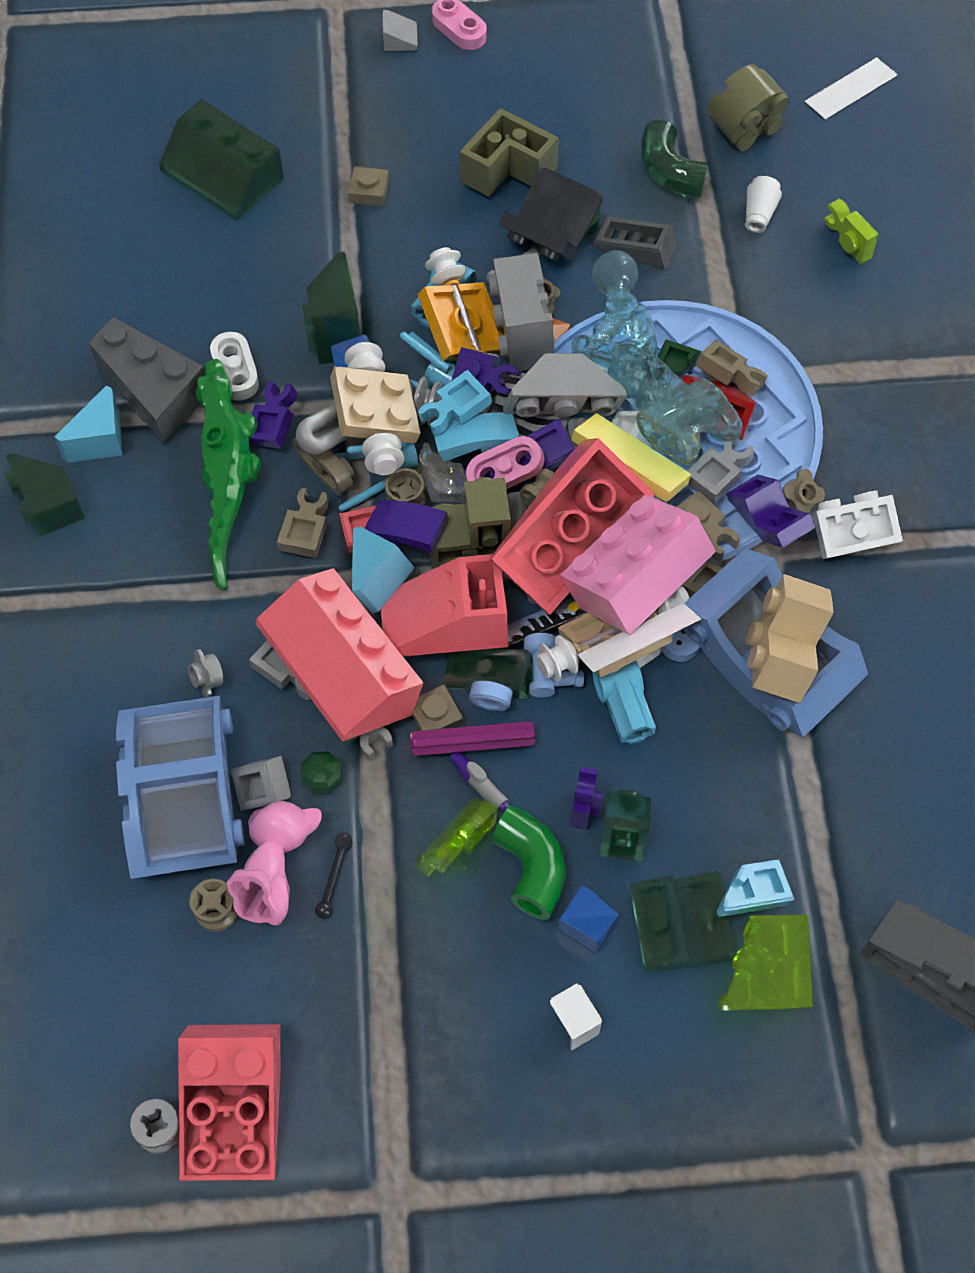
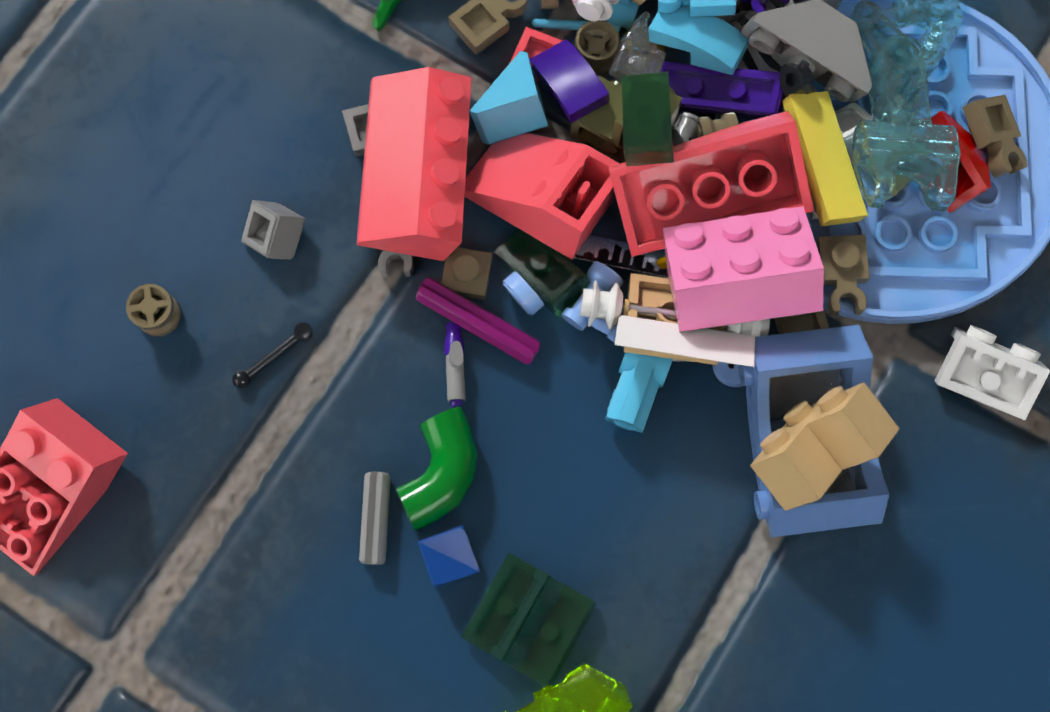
camera: 35 degrees right, 15 degrees up
(176, 787) = (195, 182): window -> none
(205, 672) = (299, 96): light grey plate -> none
(262, 887) = (202, 322): bright pink animal -> none
(321, 773) = (329, 257): dark green tile -> none
(460, 834) = (398, 399): clear neon green slope -> none
(494, 505) = (647, 119): none -> clear green slope
(505, 461) = (703, 84): bright pink plate -> none
(510, 933) = (374, 518): none -> light grey axle
(570, 416) = (796, 78): none -> black piece
(577, 1015) = (366, 633): white slope -> none
(586, 799) = (528, 450): dark purple plate -> none
(625, 825) = (544, 497): clear green slope -> none
(678, 357) = (952, 87): dark green tile -> none
(719, 471) = (898, 228): light grey plate -> none
(756, 889) = (612, 641): medium azure tile -> none
(767, 511) = (914, 303): dark purple slope -> none
(793, 492) = (954, 299): dark tan plate -> none

